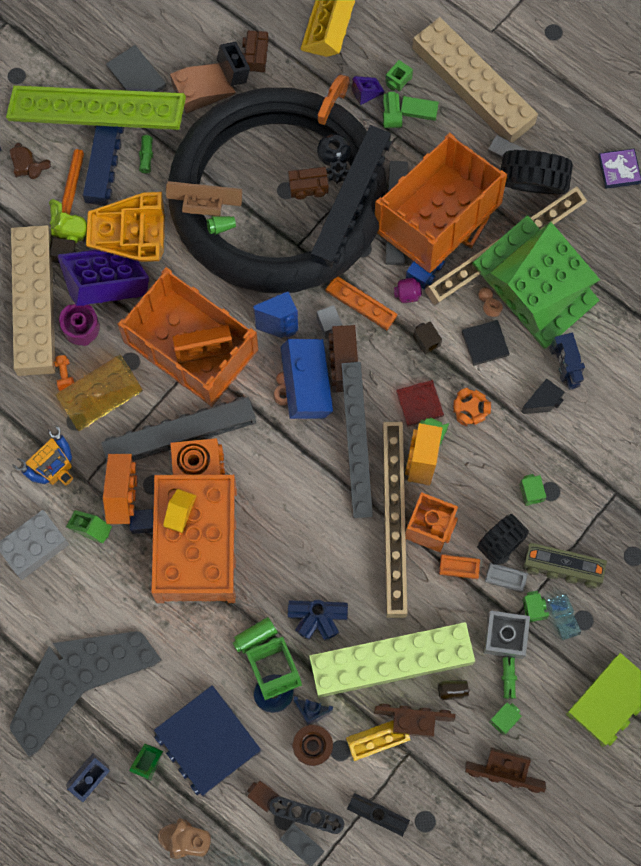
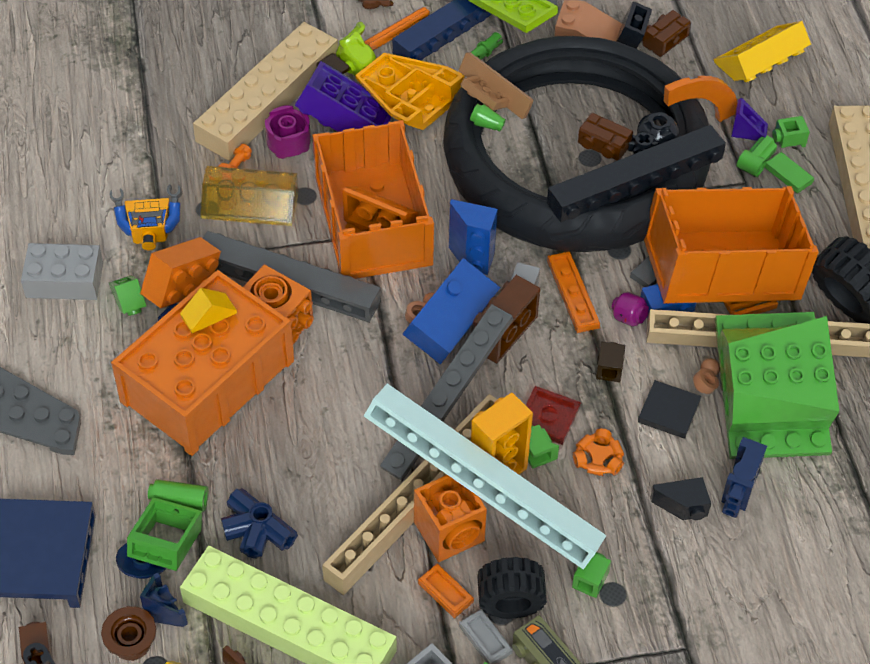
camera: 40 degrees right, 20 degrees down
(439, 487) = (485, 476): none -> light aqua brick

